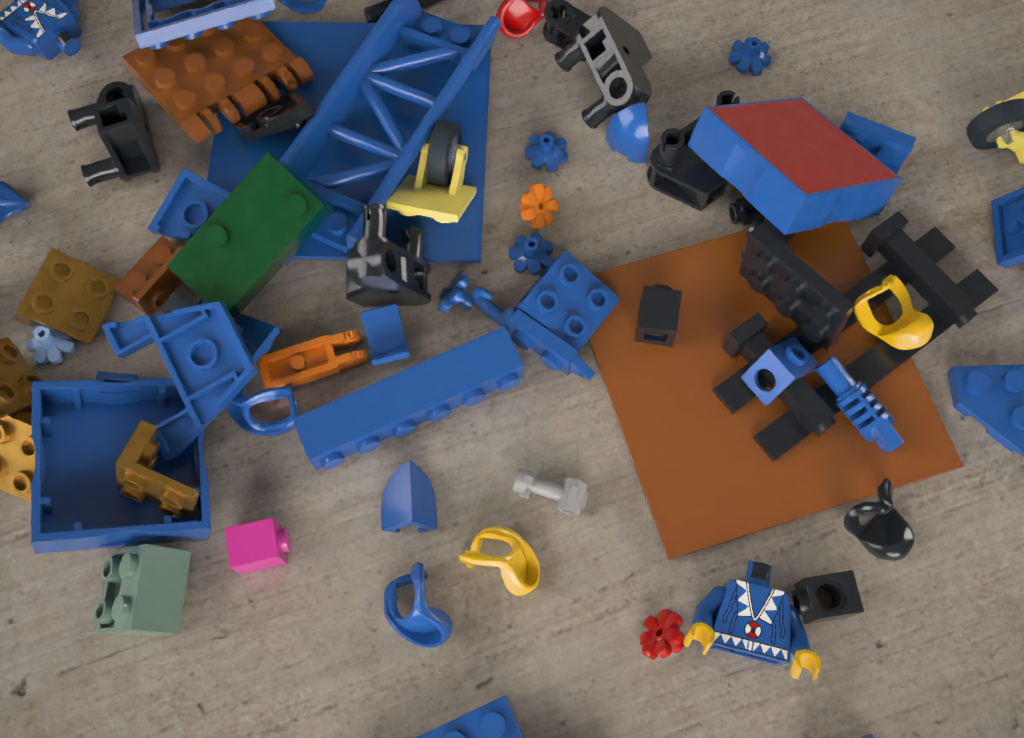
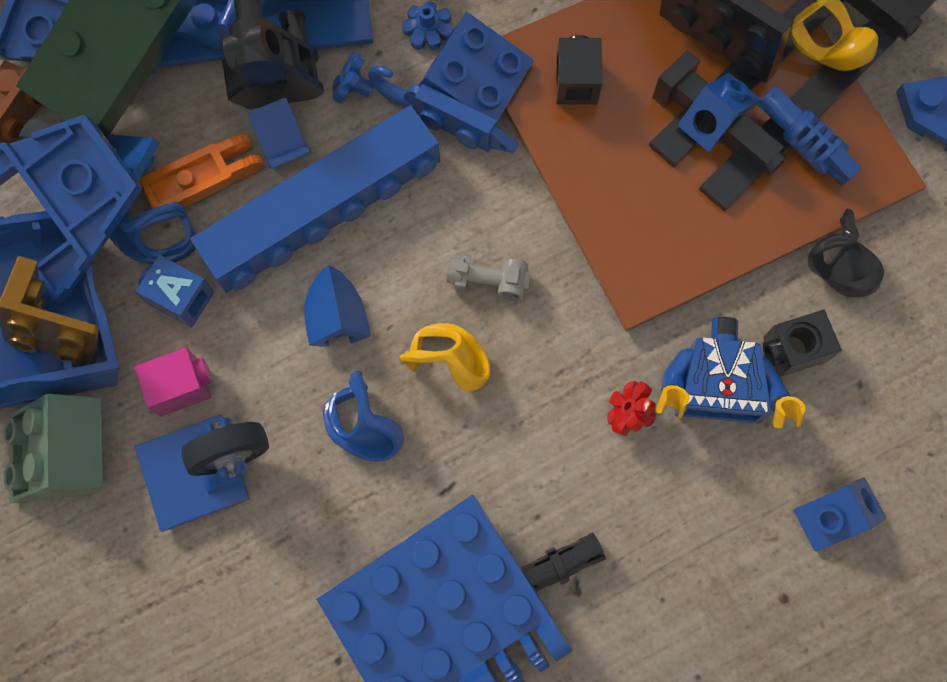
camera: 10 degrees left, 5 degrees up
(265, 629) = (199, 468): none -> blue plate
(271, 462) = (174, 290): none -> blue brick

